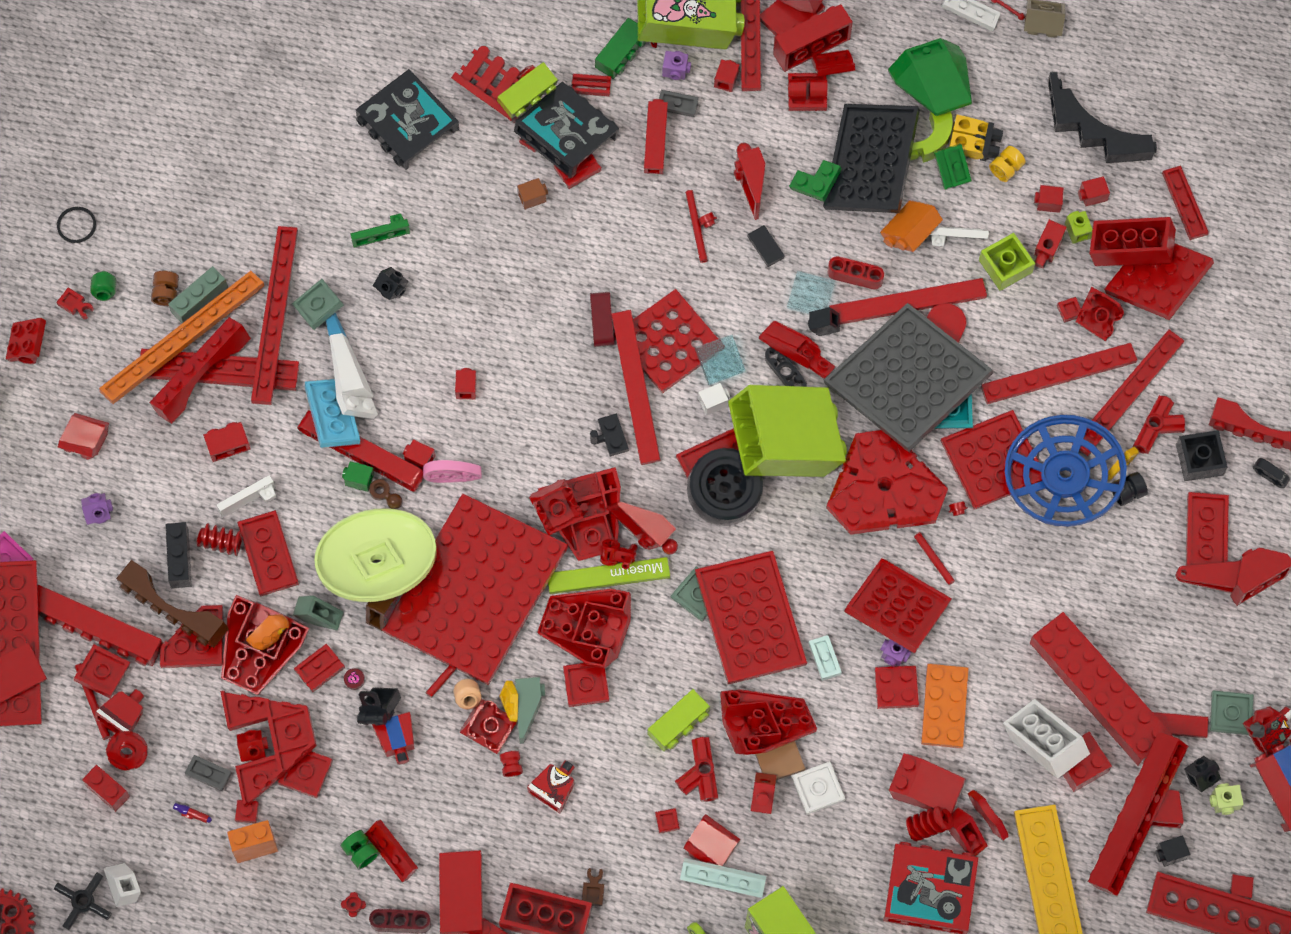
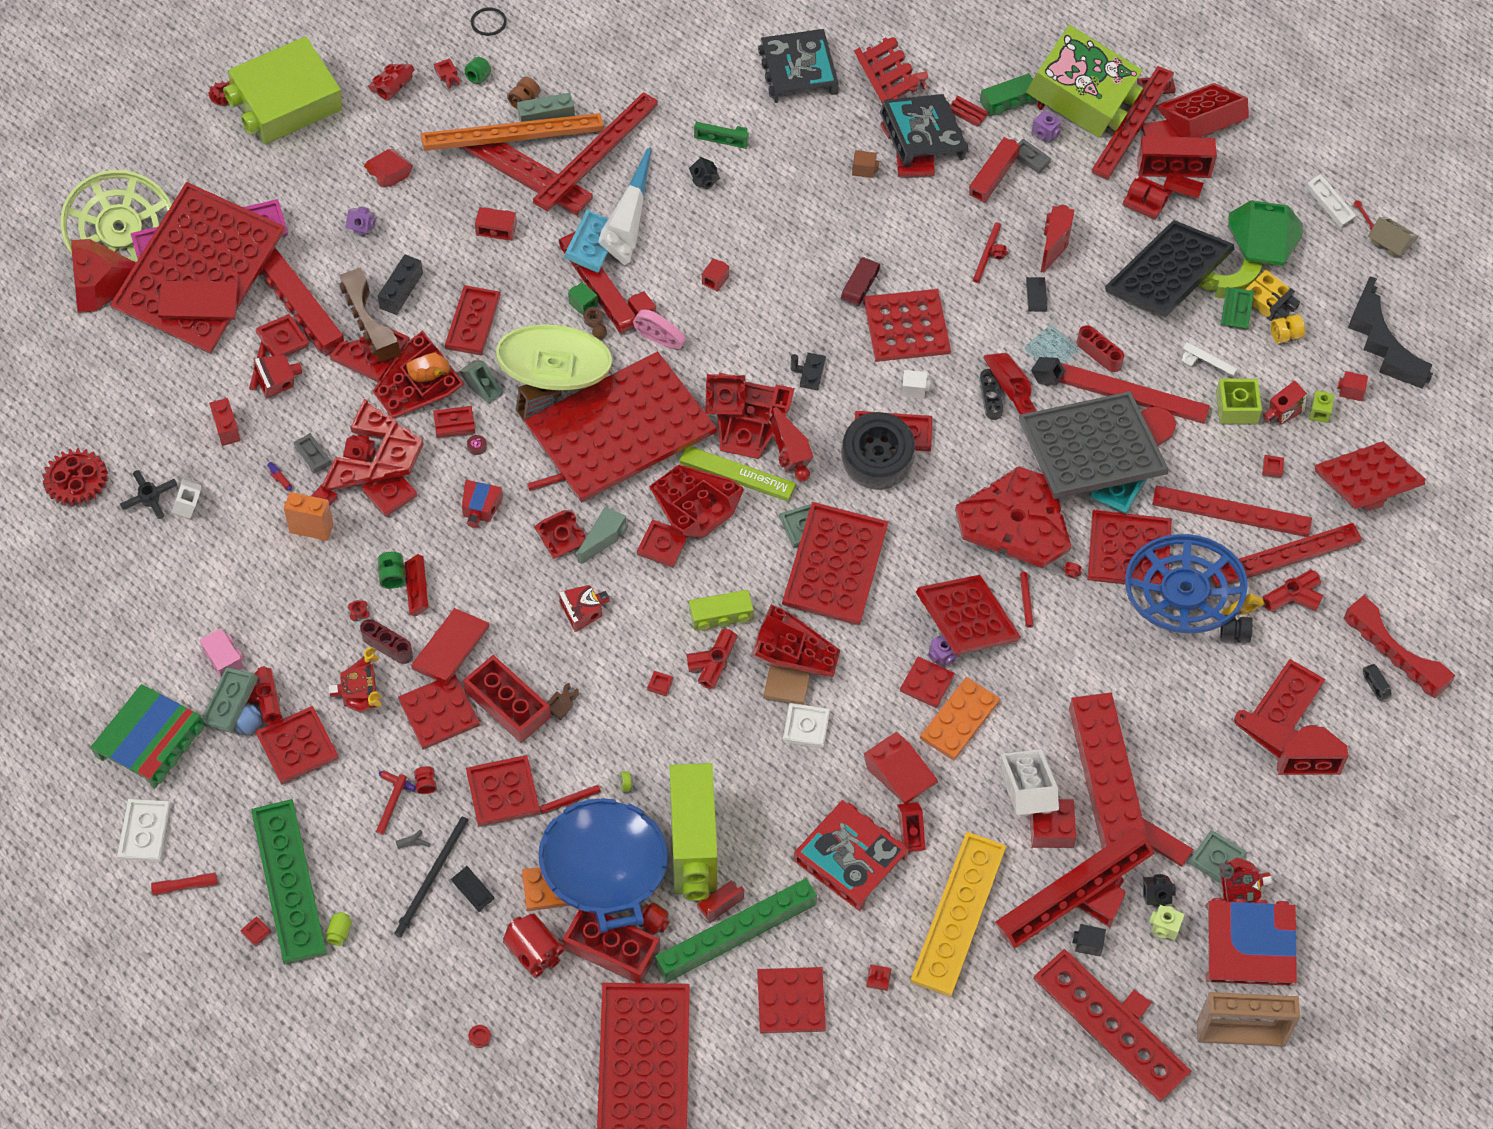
camera: 30 degrees right, 10 degrees down
(130, 740) = (269, 399): red tile -> none
(173, 397) = (474, 171): red arch -> none
(219, 540) = (440, 289): red piece -> none
(262, 488) = (484, 269): white hinge -> none
(317, 304) = (635, 160): sand green tile -> none
(378, 705) = (479, 470): black piece -> none
(467, 694) = (558, 499): light nougat head -> none
(510, 700) = (589, 521): yellow tile -> none
(511, 763) = (559, 570): red wheel -> none
(527, 91) = (908, 82): lime brick -> none
(617, 554) = (752, 458): red piece -> none
(636, 387) = (854, 344): red tile -> none
(711, 842) = (684, 719): slope -> none
(720, 359) = (940, 357): clear light blue tile -> none
(723, 877) = (669, 743): light aqua plate -> none
(726, 75) = (1085, 154): red brick -> none
(763, 793) = (752, 701): red torso -> none
(787, 431) = (958, 430): lime brick -> none
(818, 185) = (1109, 268): green plate -> none
(825, 657) = (879, 626): light aqua plate -> none
(911, 226) = (1170, 333): orange brick -> none
(929, 823) = (882, 798): red piece -> none
(983, 808) = (940, 820): red tile -> none
(1049, 198) = (1309, 372): red brick -> none
(1099, 314) = (1296, 480): red slope -> none
(1132, 241) = (1361, 435): red brick -> none
(1185, 202) = (1432, 435): red tile -> none
(1201, 455) = (1319, 634): black brick -> none

